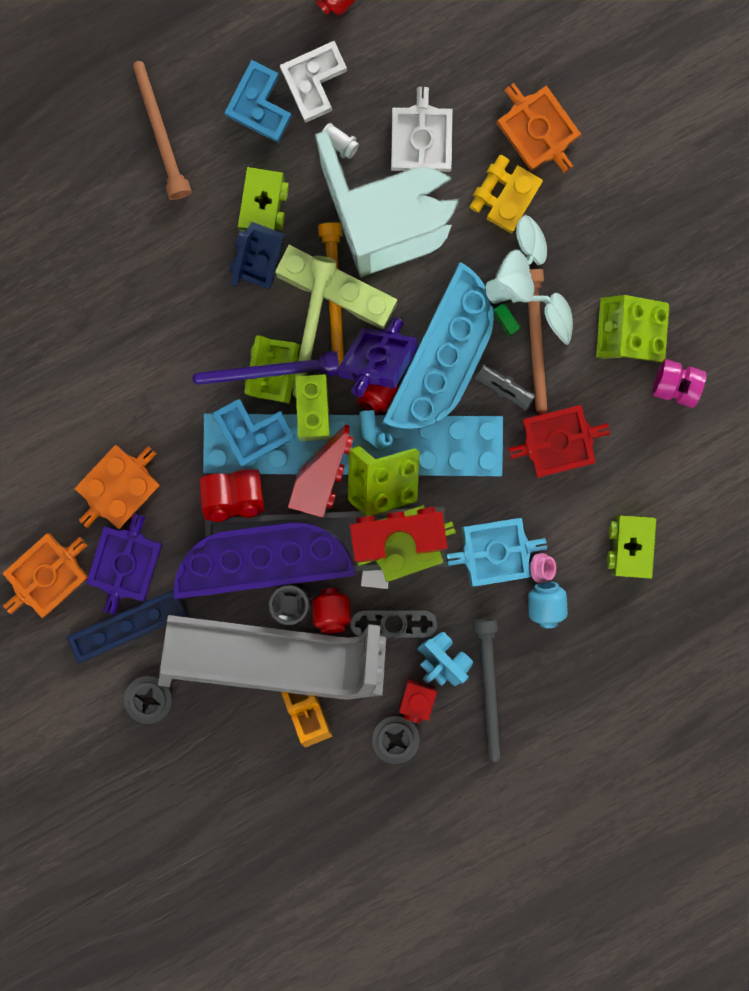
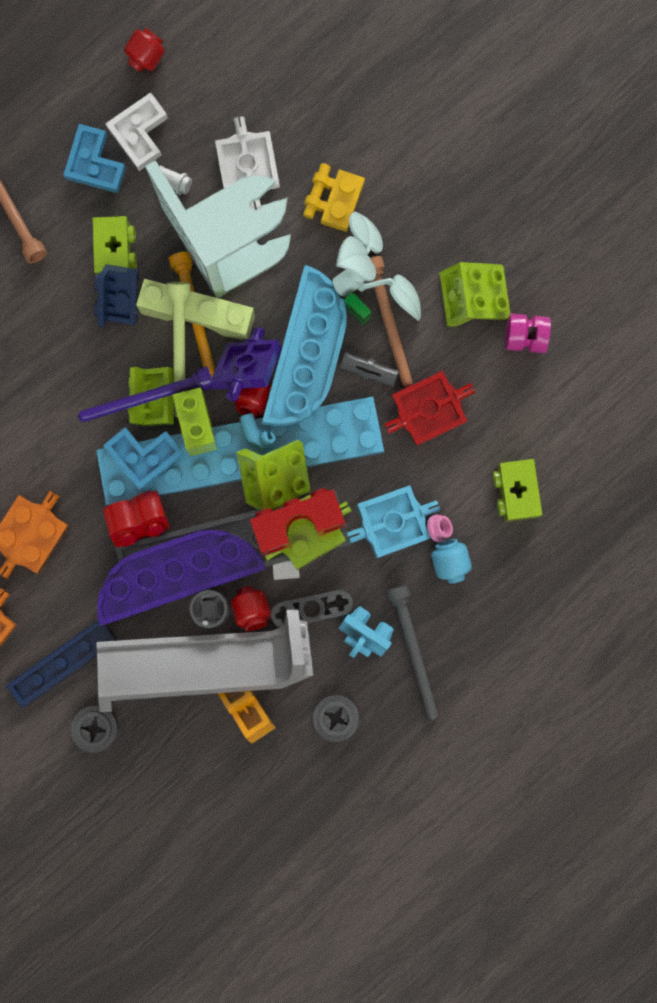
camera: 10 degrees left, 5 degrees down
(124, 563) = (47, 604): dark purple plate -> none
(315, 479) = (211, 486): slope -> none
(417, 701) = (348, 677): red brick -> none
(538, 128) = (351, 133): orange plate -> none

